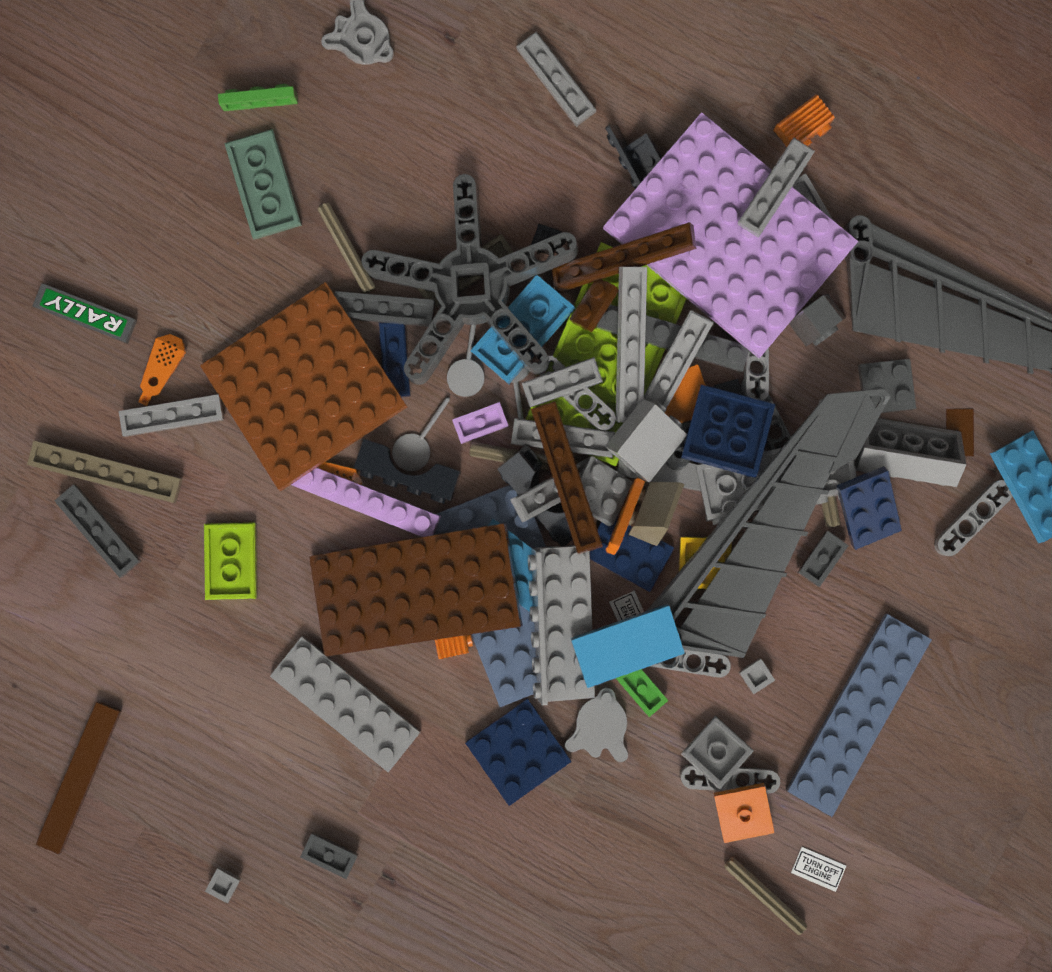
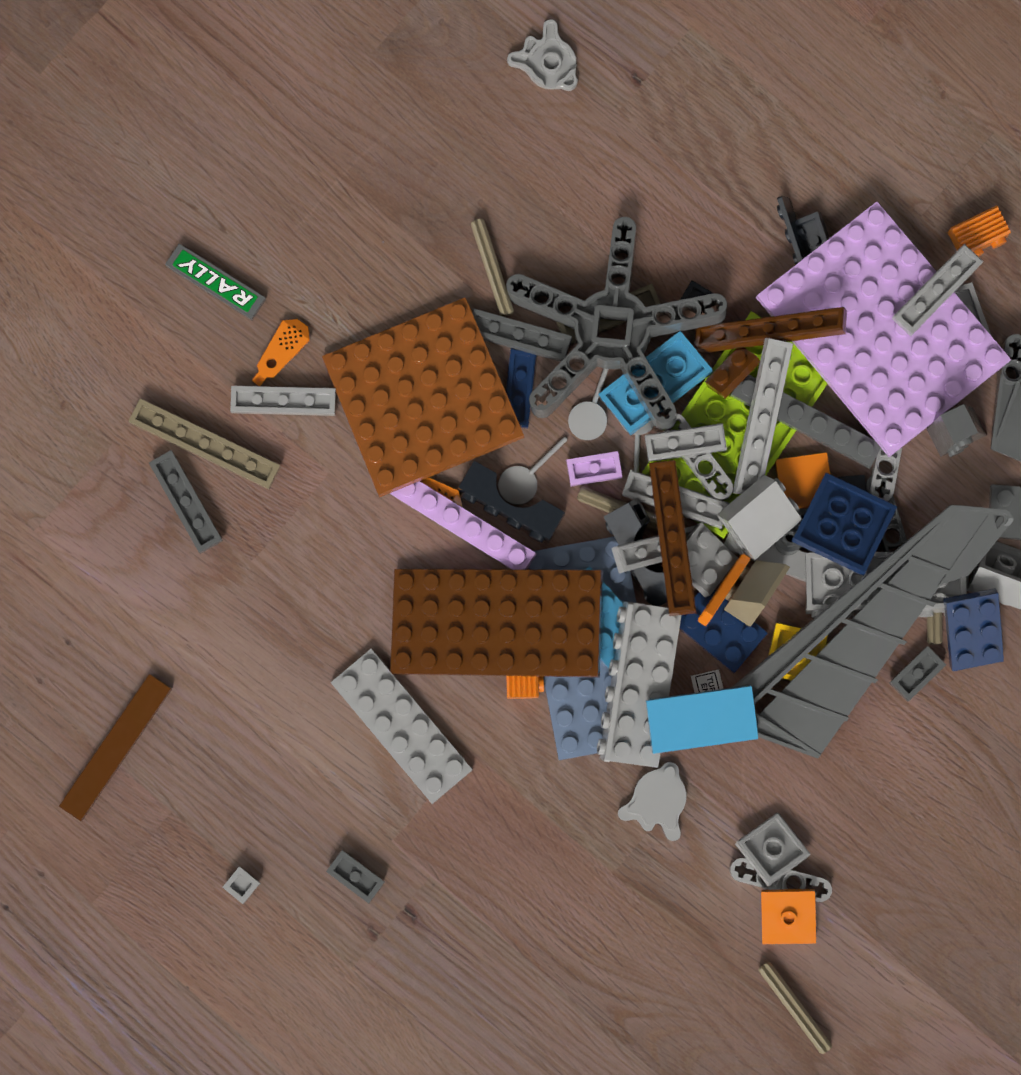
camera: 10 degrees right, 5 degrees down
(230, 561) = (313, 559): lime tile -> none
(257, 97) = (433, 101): bright green plate -> none
(263, 184) = (420, 188): sand green tile -> none
(518, 752) = (568, 809): dark blue plate -> none
(556, 79) = (736, 140): light grey tile -> none
(643, 691) = (707, 770): bright green plate -> none
(678, 359) = (807, 441): light grey tile -> none
(680, 664) = (751, 753): light grey beam -> none
(756, 676) = (827, 779): light grey plate -> none
(818, 869) = (855, 992): white sticker -> none
(858, 715) = (925, 841): sand blue plate -> none

